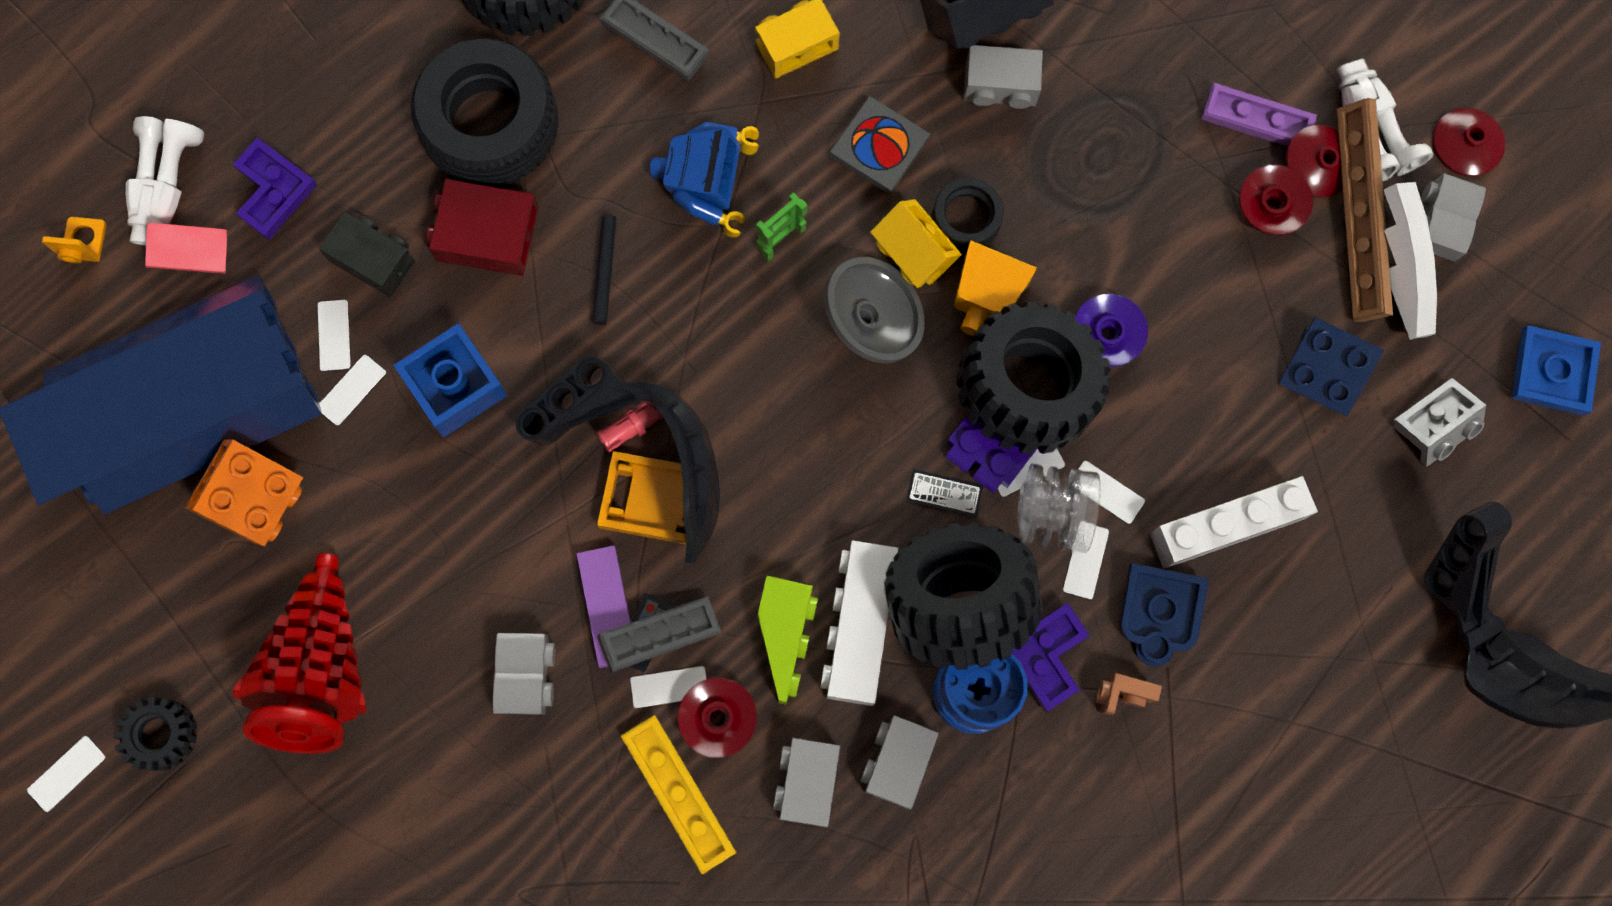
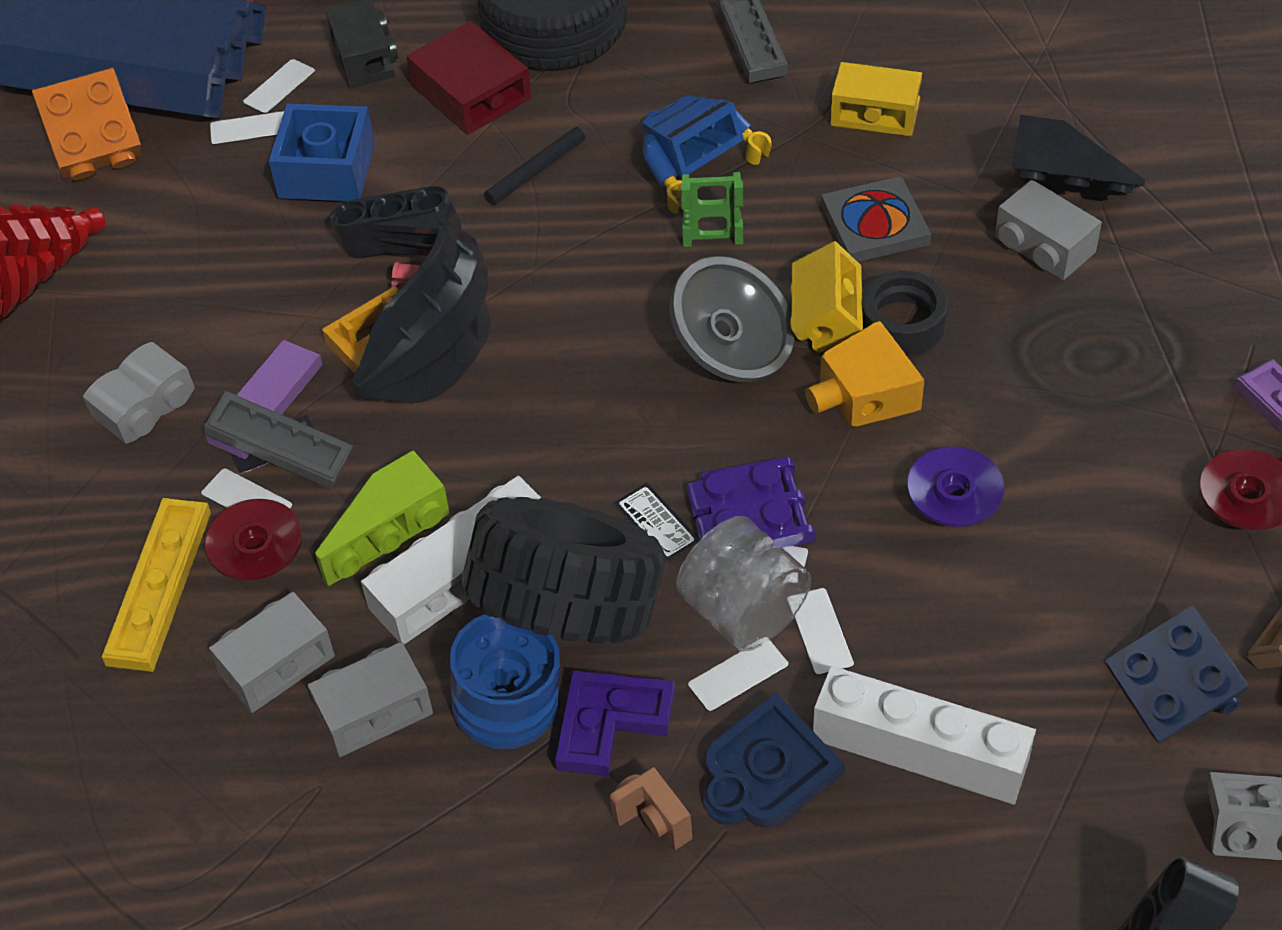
camera: 50 degrees right, 25 degrees down
(1059, 345) = (816, 500): black tyre -> none

